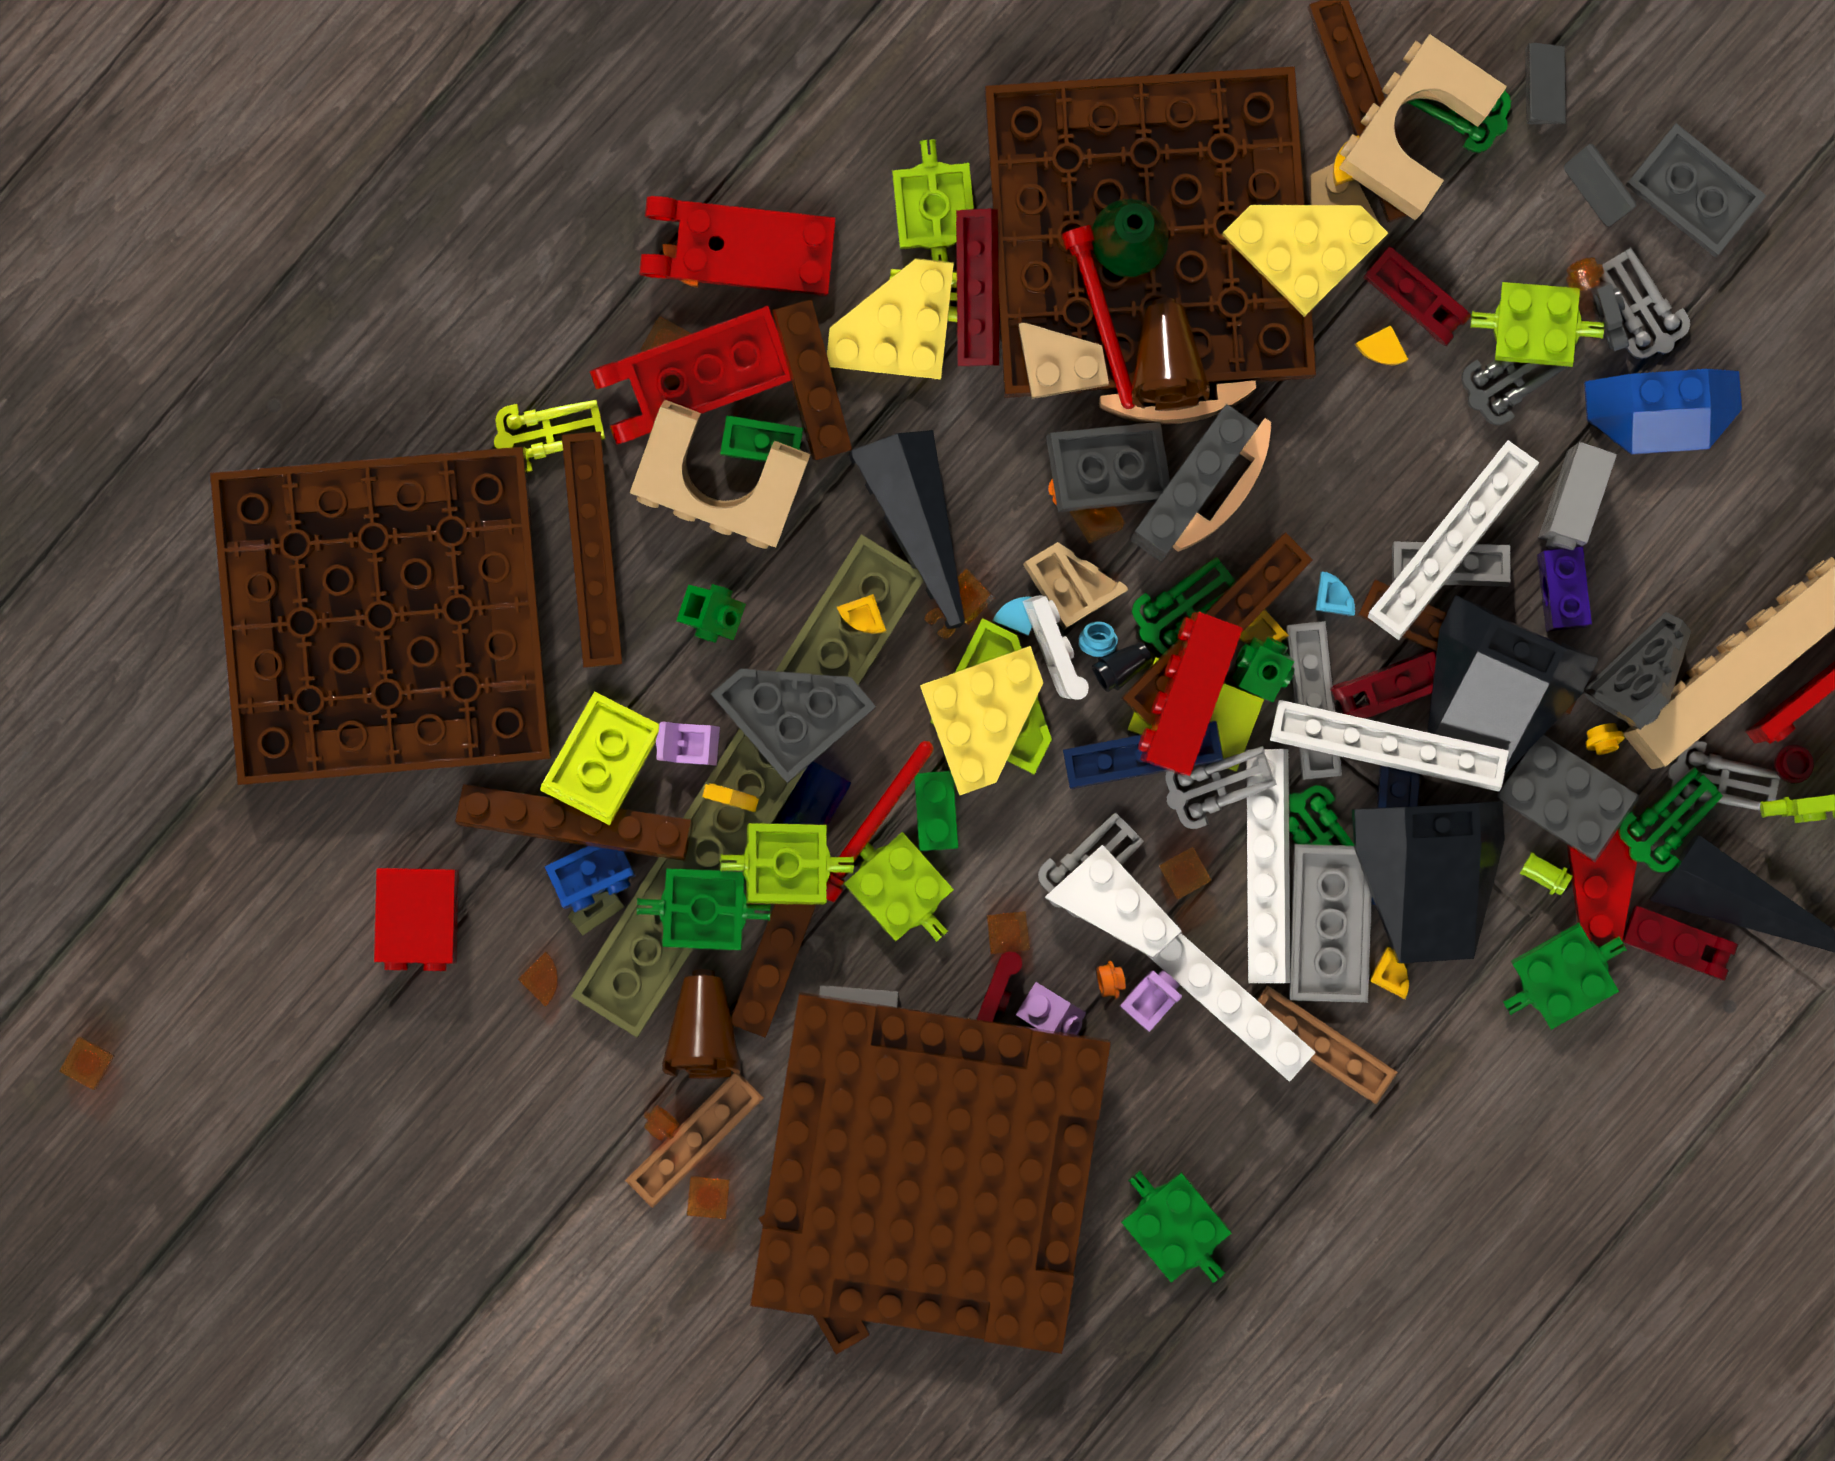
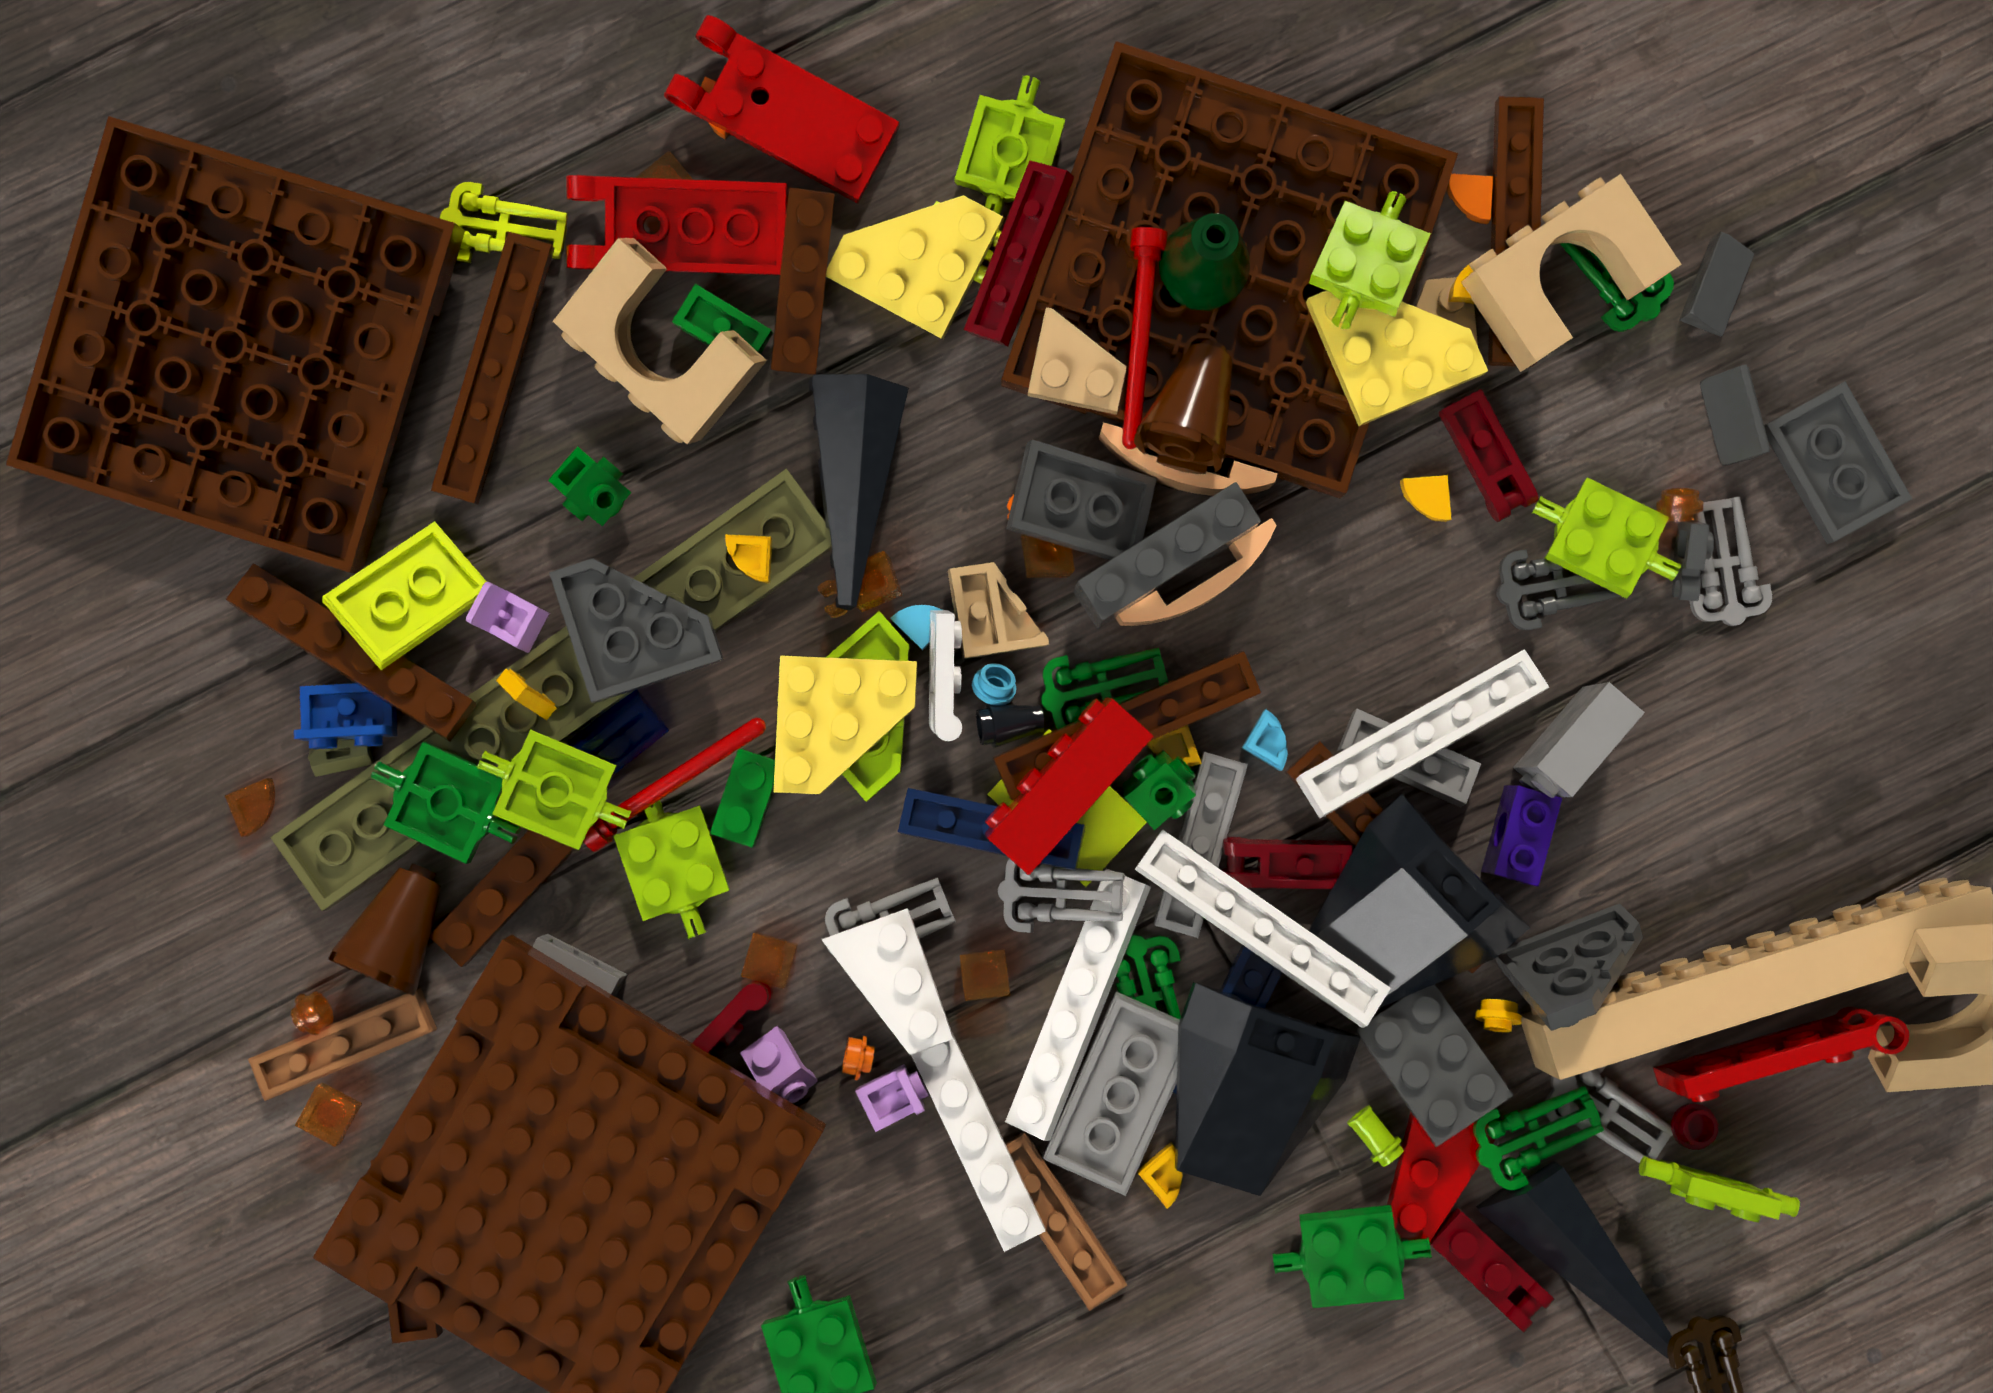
camera: 30 degrees right, 0 degrees up
(416, 918) = (142, 685): red brick -> none
(1259, 183) = (1369, 259): none -> lime plate
(1319, 91) = (1472, 195): none -> orange tile
(1664, 408) = (1707, 683): blue wedge -> none

